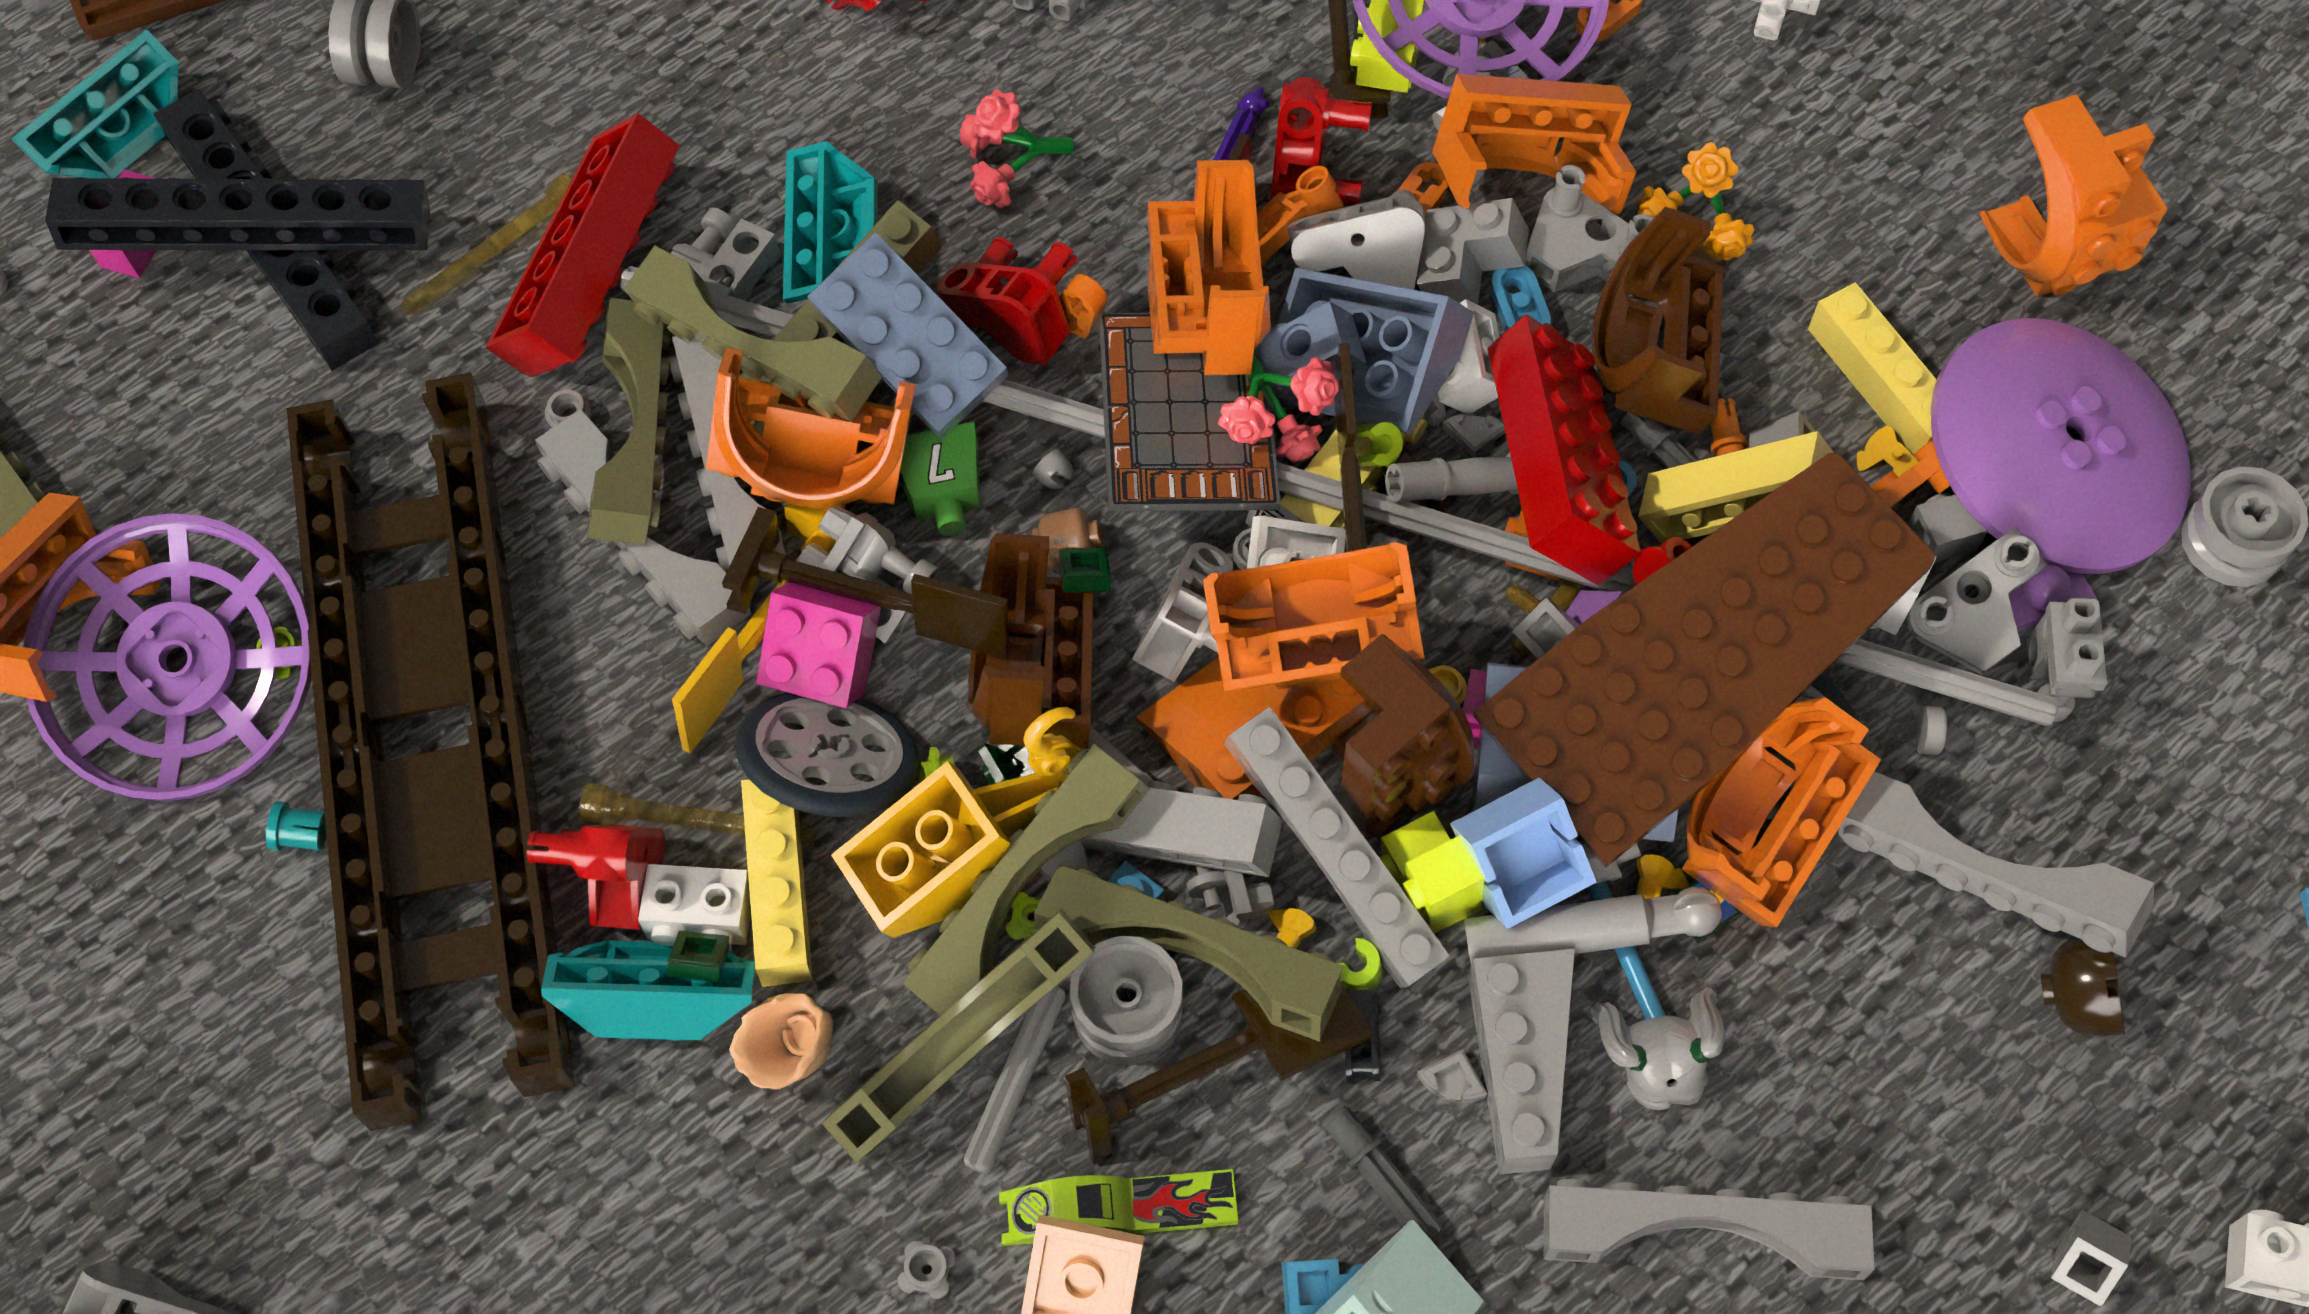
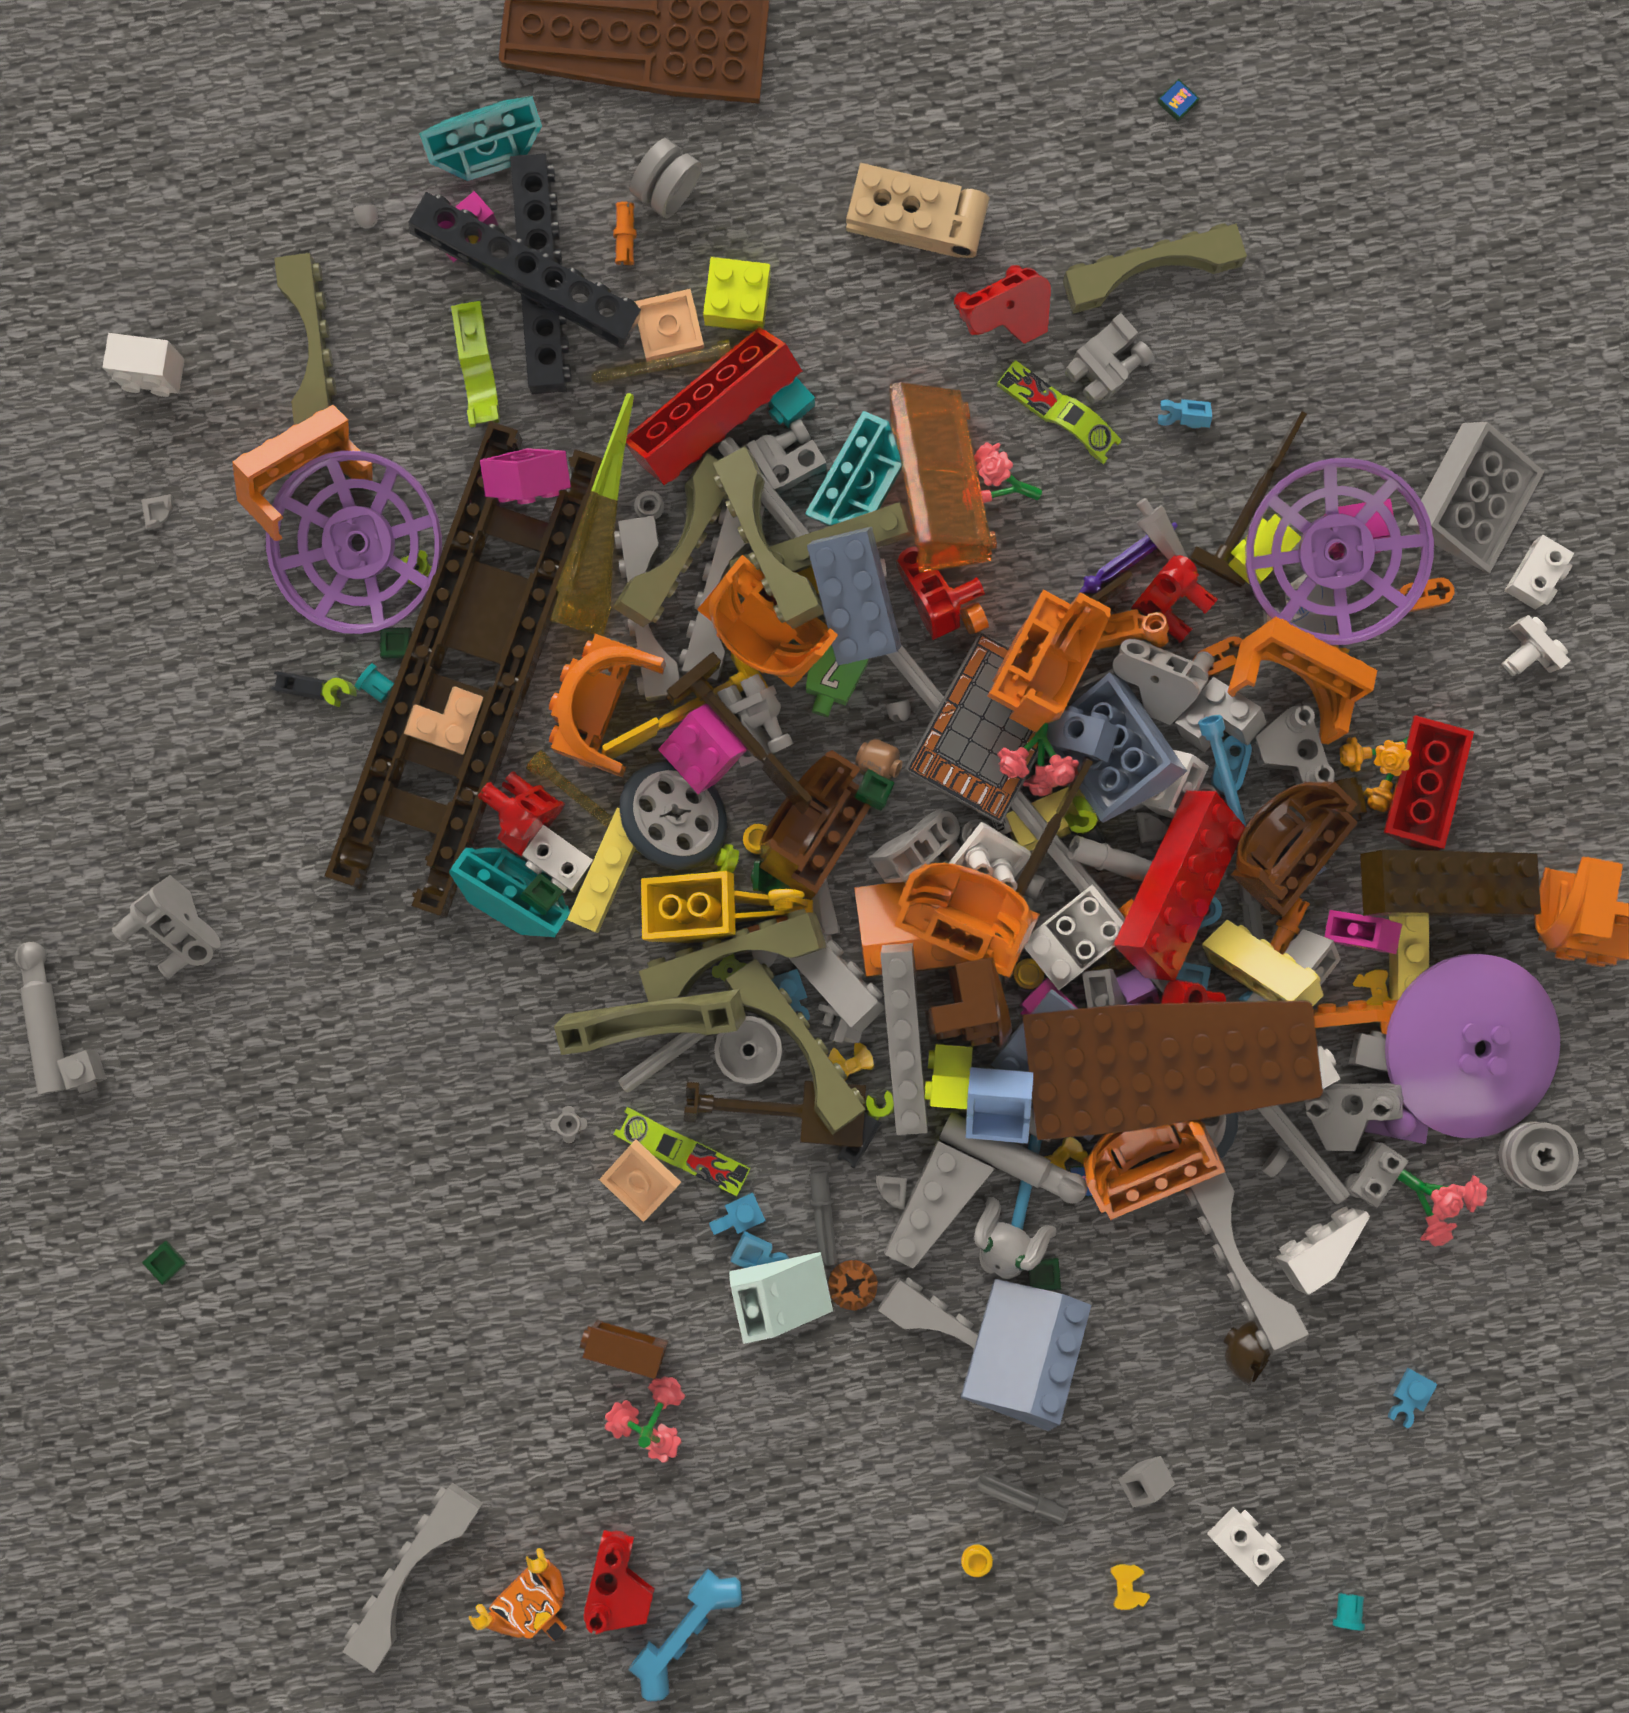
camera: 30 degrees right, 20 degrees up
(204, 883) = (313, 687): none -> black piece
(230, 366) = (475, 363): none -> lime piece
(297, 763) = (394, 642): none -> dark green tile
(356, 131) = (624, 233): none -> orange pin
(371, 434) = (525, 475): none -> dark pink brick
(436, 817) = (448, 729): none -> light nougat plate
(475, 199) = (669, 325): none -> light nougat plate
(526, 522) = (587, 573): none -> clear yellow plate
(542, 119) = (736, 294): none -> neon yellow brick
(621, 674) = (590, 699): none -> orange piece
(687, 199) = (791, 403): none -> teal brick
(781, 1024) = (561, 964): light nougat hair -> none
(936, 167) = (940, 476): none -> clear orange windscreen
(962, 730) = (752, 837): none -> yellow plate
(1020, 45) = (1059, 409): none -> piece
(1242, 94) = (1159, 529): none -> light grey bar
(1262, 1245) = (742, 1214): none -> dark azure plate
(1472, 255) = (1212, 728): none -> dark azure piece
(1473, 593) = (1074, 937): none -> white slope
(1497, 1270) = (855, 1270): none -> dark orange gear
(1741, 1066) = (1046, 1275): none -> dark green tile
(1779, 189) = (1430, 787): none -> red slope
(1800, 1174) = (1026, 1353): none -> slope
(1828, 383) = (1363, 931): none -> dark pink brick
(1886, 268) = (1450, 883): none -> dark brown brick
(2079, 796) = (1323, 1251): none -> white slope
(2192, 629) = (1446, 1204): none -> coral plant

